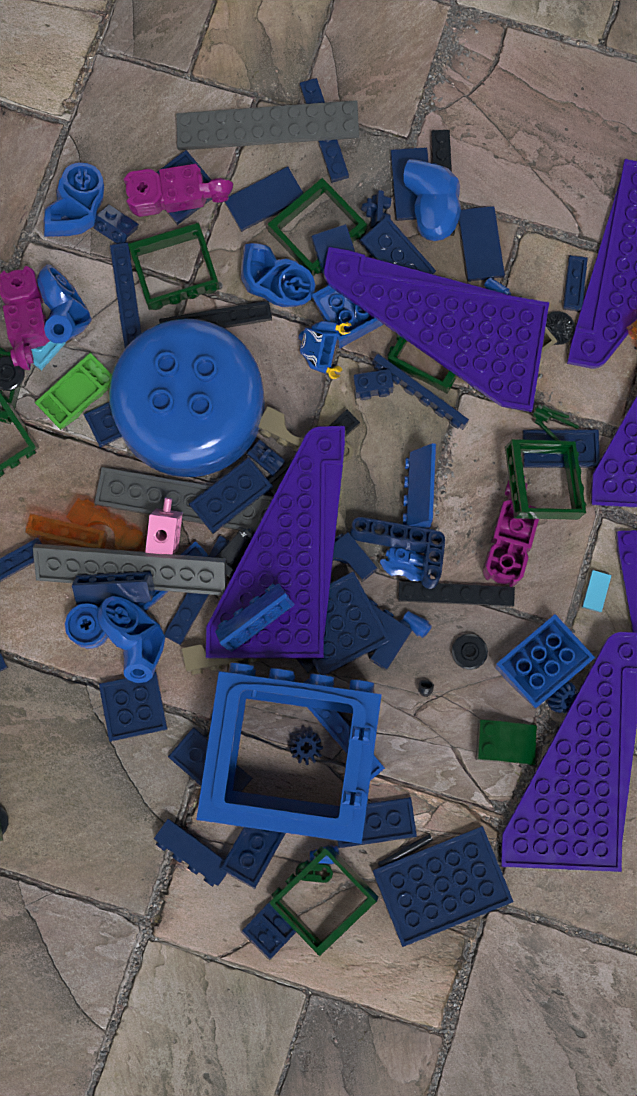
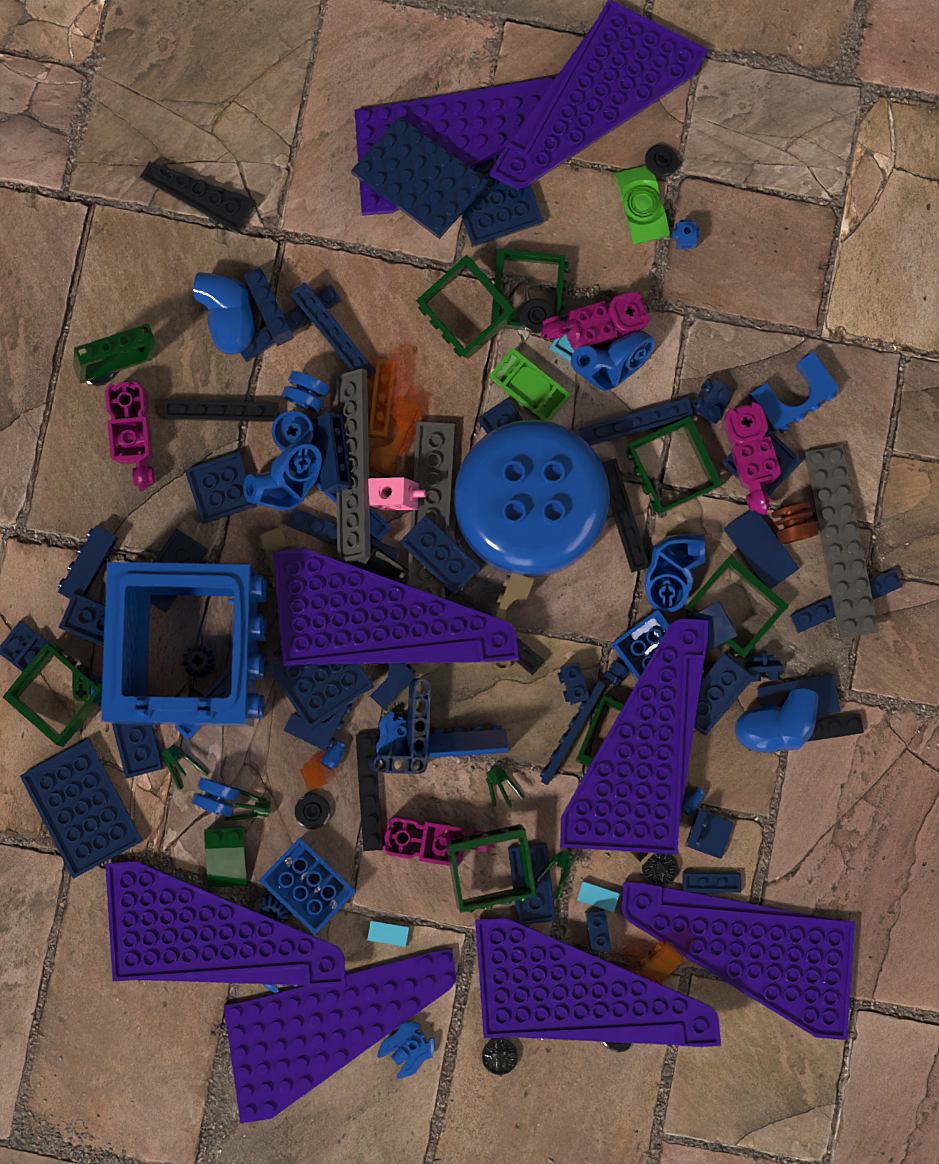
camera: 80 degrees right, 5 degrees up
(47, 608) = (305, 391): none -> blue wheel
(54, 698) = (220, 411): none -> black plate
(59, 791) = (130, 430): none -> magenta brick
(77, 203) = (729, 358): blue piece -> none
(118, 126) = (820, 387): none -> blue arch
(244, 162) = (794, 523): none -> copper wheel
(253, 618) = (312, 592): blue slope -> none
(266, 458) = (483, 585): dark blue hips -> none
(319, 346) = (605, 624): blue torso -> none
(367, 344) = (616, 673): none -> dark blue wheel
(399, 785) = (173, 756): none -> dark green plant
(406, 850) = (111, 769): black bar -> none
(425, 688) = (271, 771): black hinge -> none
(434, 645) = (313, 775): none -> clear orange brick
(449, 745) = (215, 797): none -> blue wheel
(454, 467) = (496, 777): none -> dark green plant
(461, 702) = (261, 808): none -> dark green plant
(481, 244) = (742, 779): dark blue tile -> none
(529, 279) = (709, 834): none -> dark blue bracket
(579, 388) = (598, 896): none -> medium azure tile
(612, 390) = (598, 931): none -> dark blue brick

